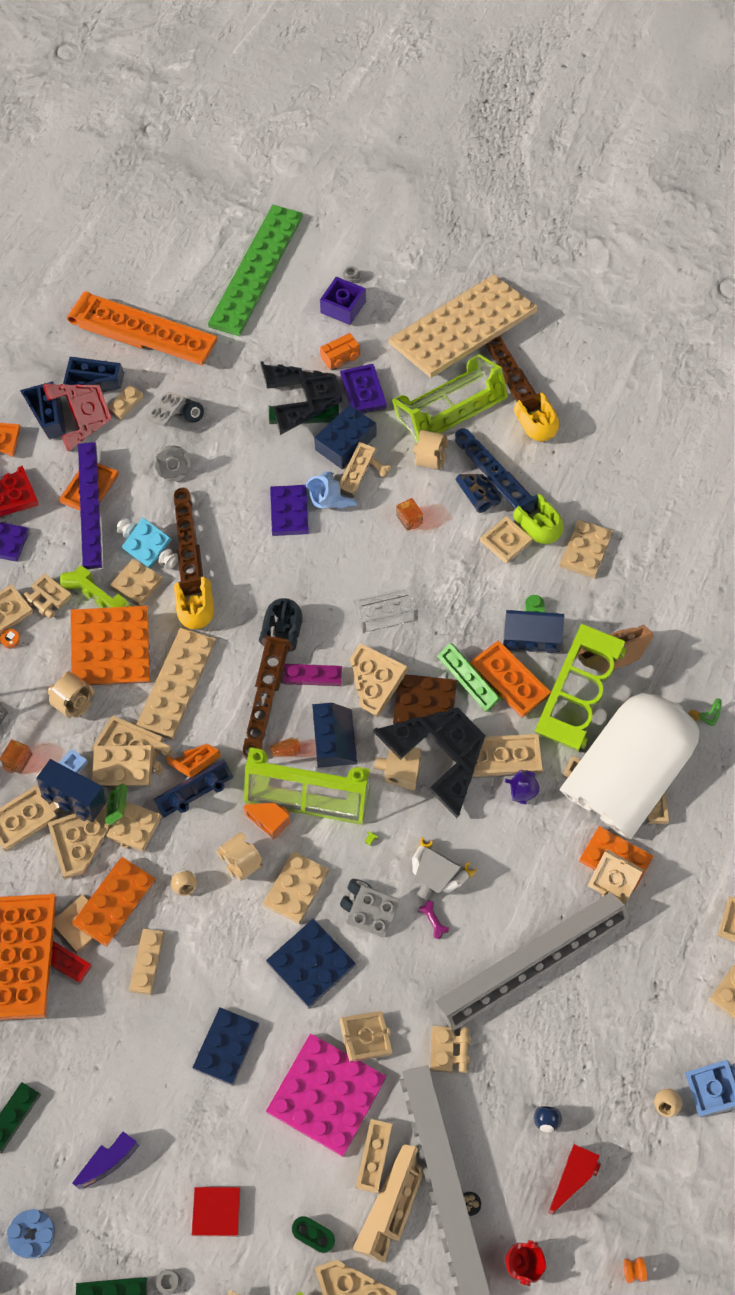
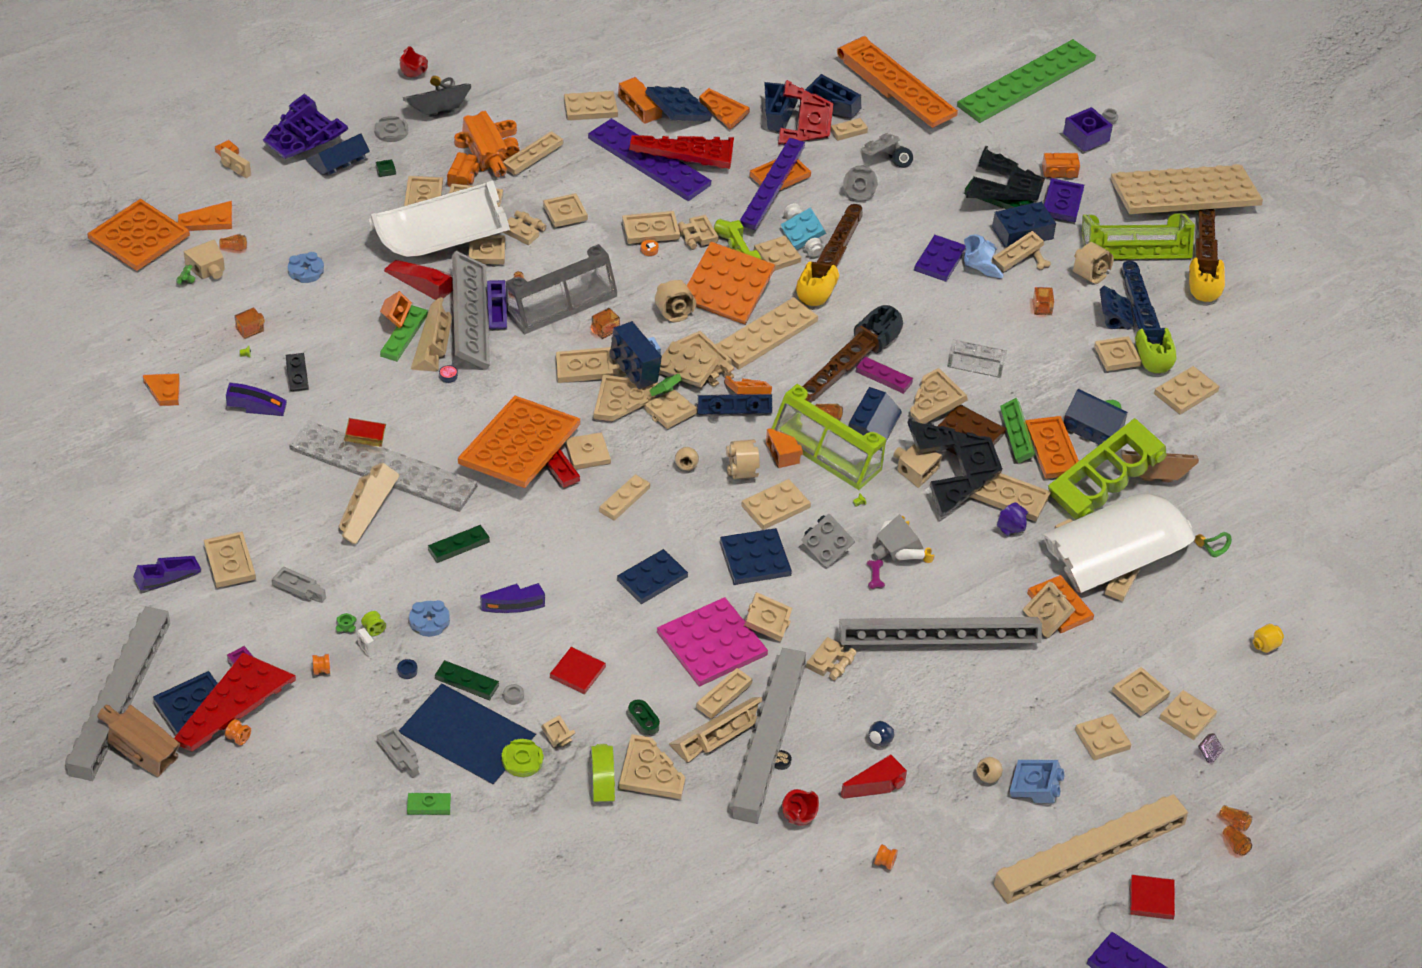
camera: 25 degrees right, 15 degrees down
(114, 901) = (623, 446): orange plate -> none

